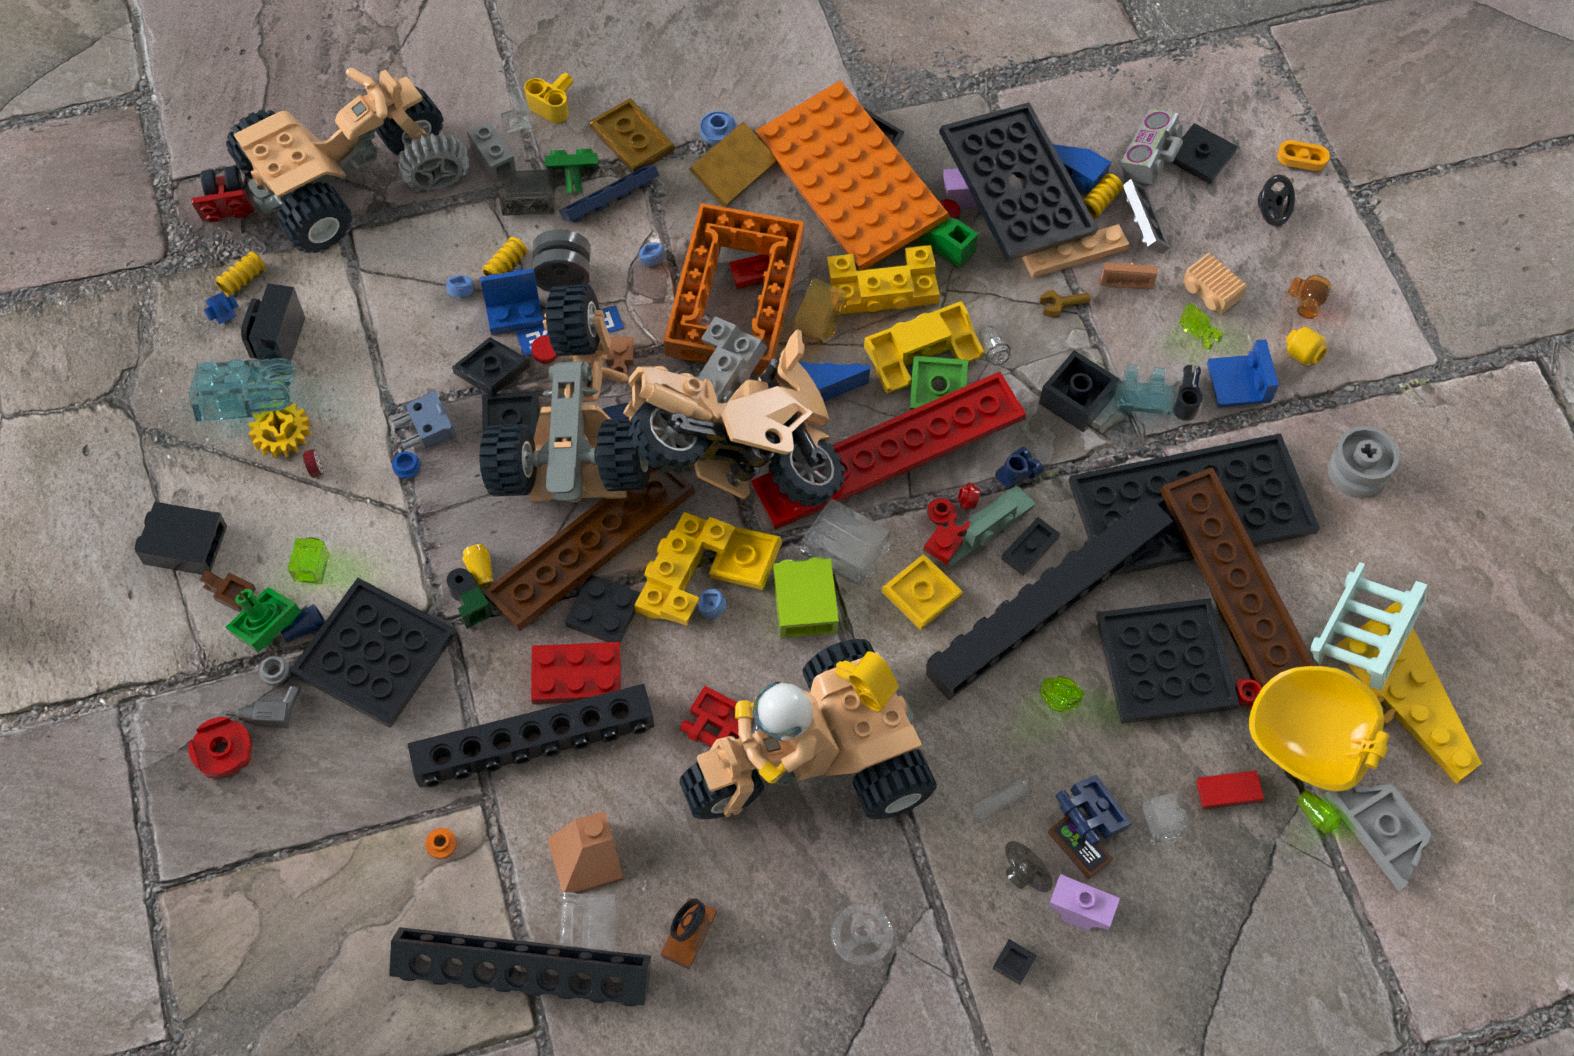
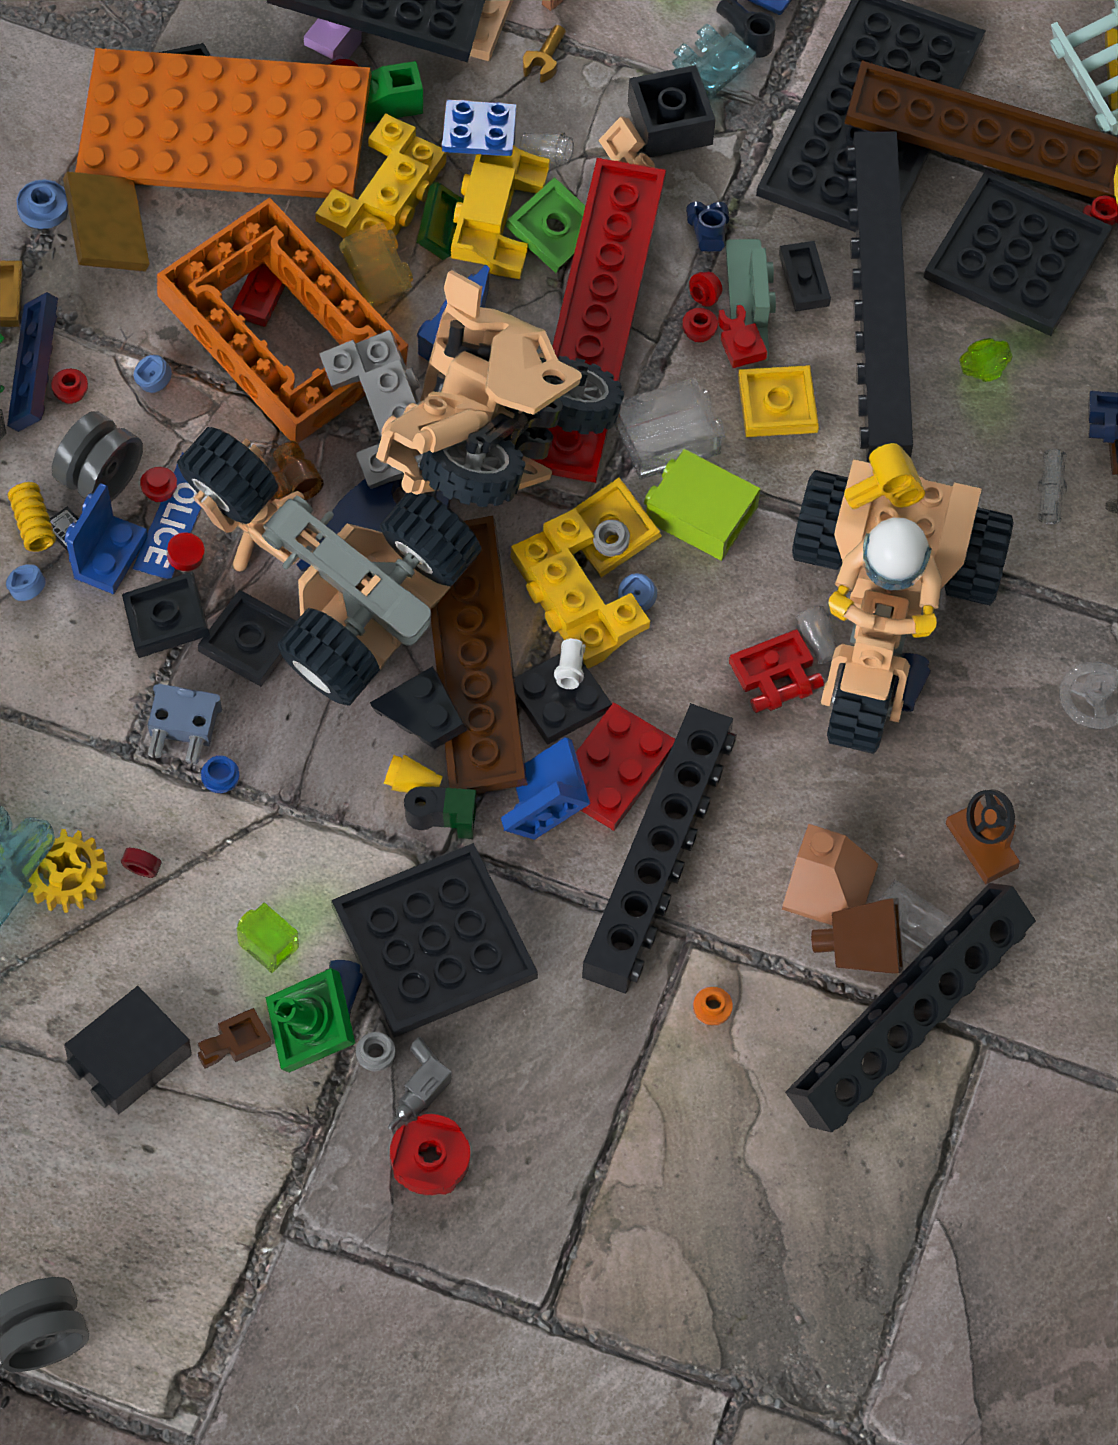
camera: 55 degrees left, 0 degrees up
(520, 648) = (552, 792): none -> blue bracket
(529, 539) = (422, 709): none -> black wing
(548, 904) = (864, 937): none -> reddish brown torso
(613, 226) = (72, 393): none -> red plate
(619, 597) = (569, 670): none -> white pin
(650, 357) = (295, 472): none -> clear orange piece
(728, 555) = (609, 528): none -> light grey plate
(774, 806) = (915, 681): none -> dark blue cone
(885, 319) = (437, 220): none -> dark green tile
(964, 298) = (479, 128): none -> bracket
(1031, 385) = (624, 142): none -> light nougat plate

